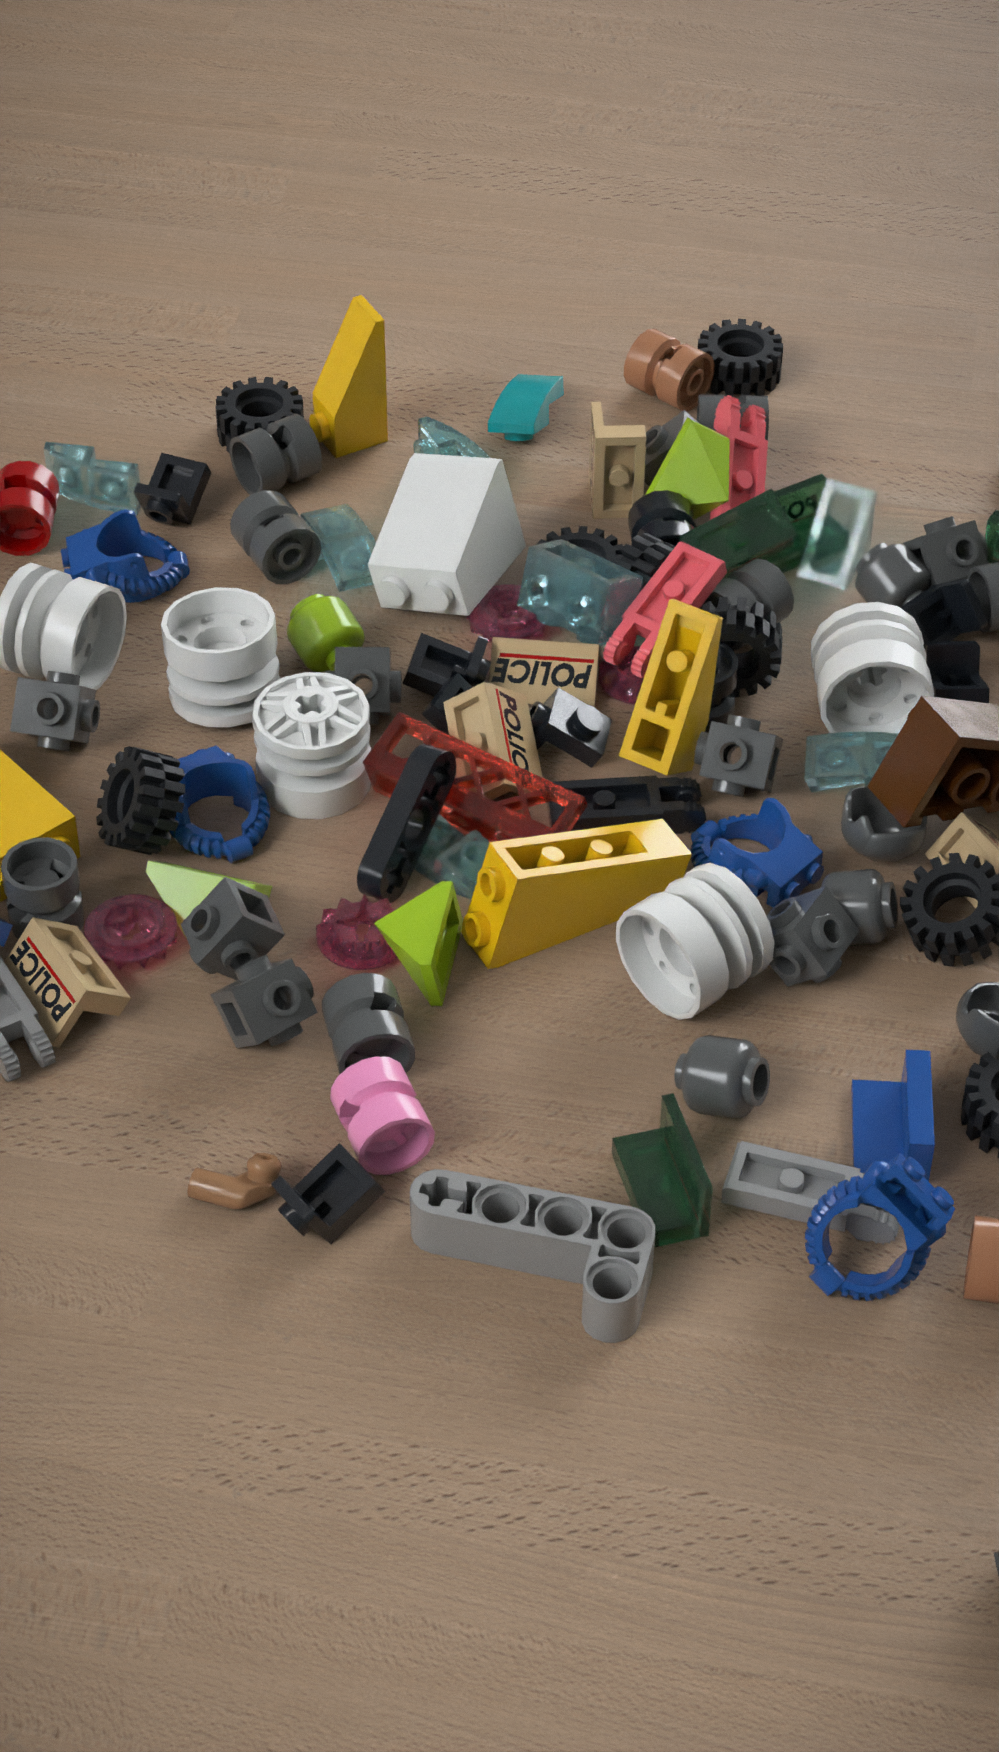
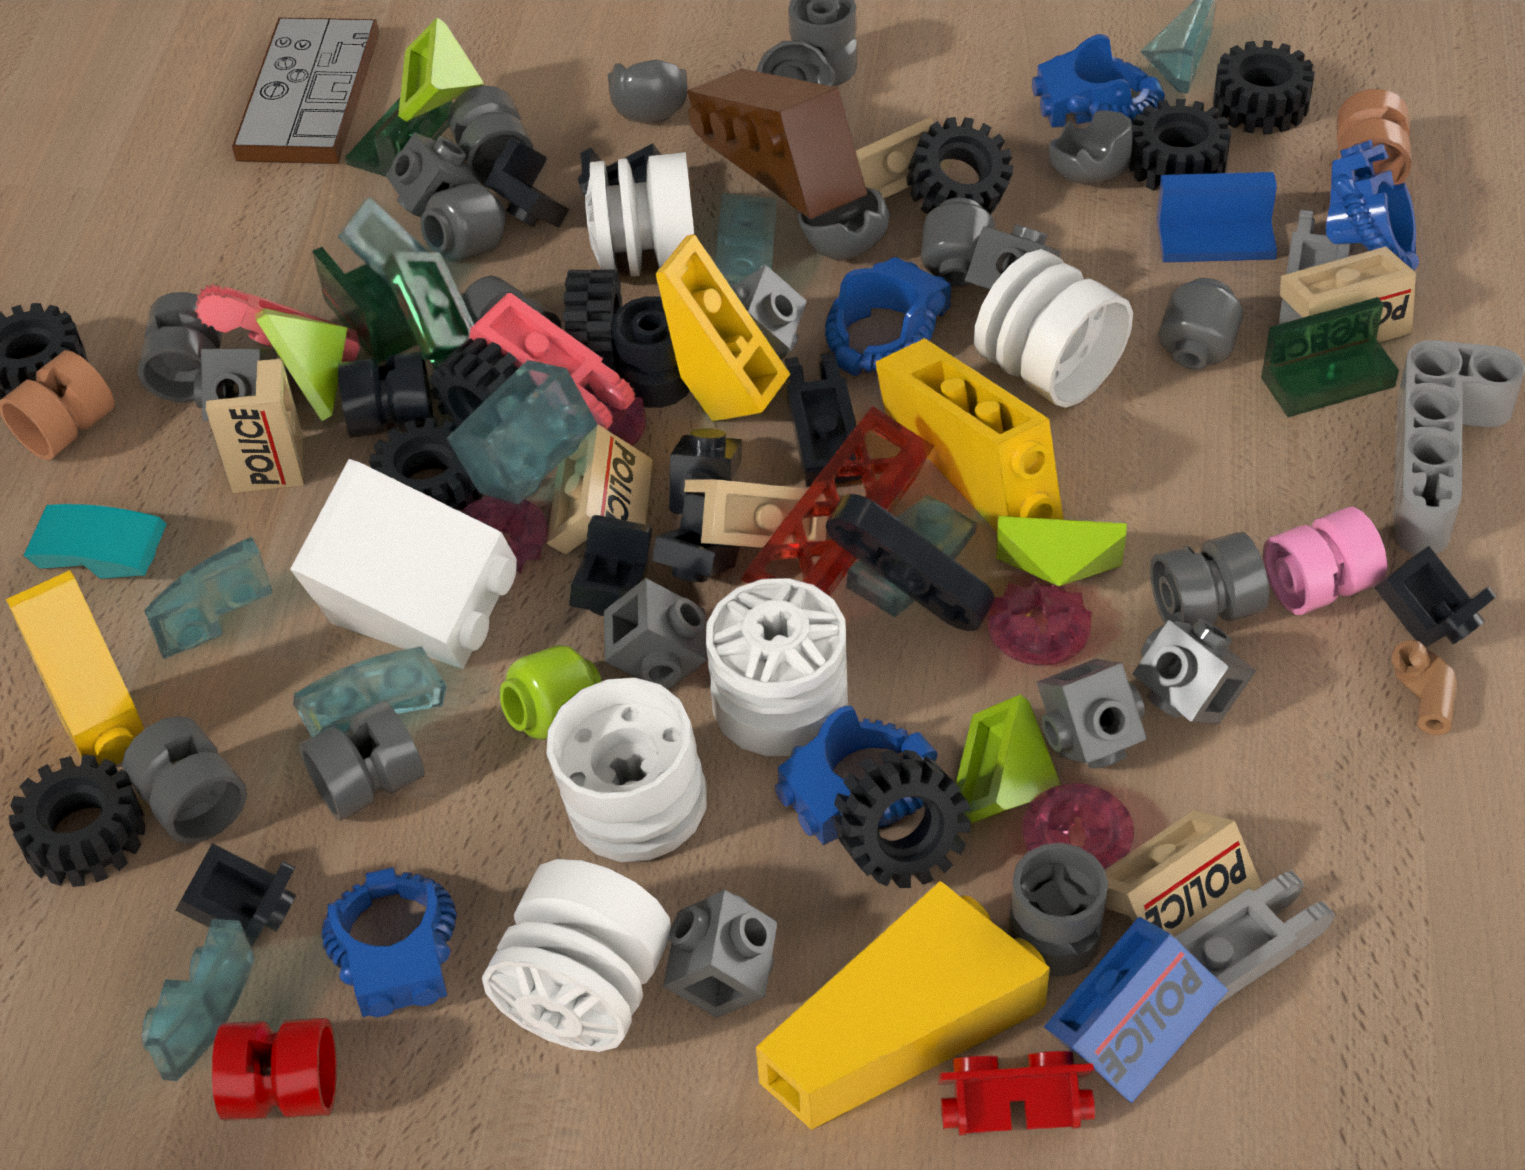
camera: 90 degrees left, 5 degrees up
(749, 1193) = (1355, 280): none -> tan panel

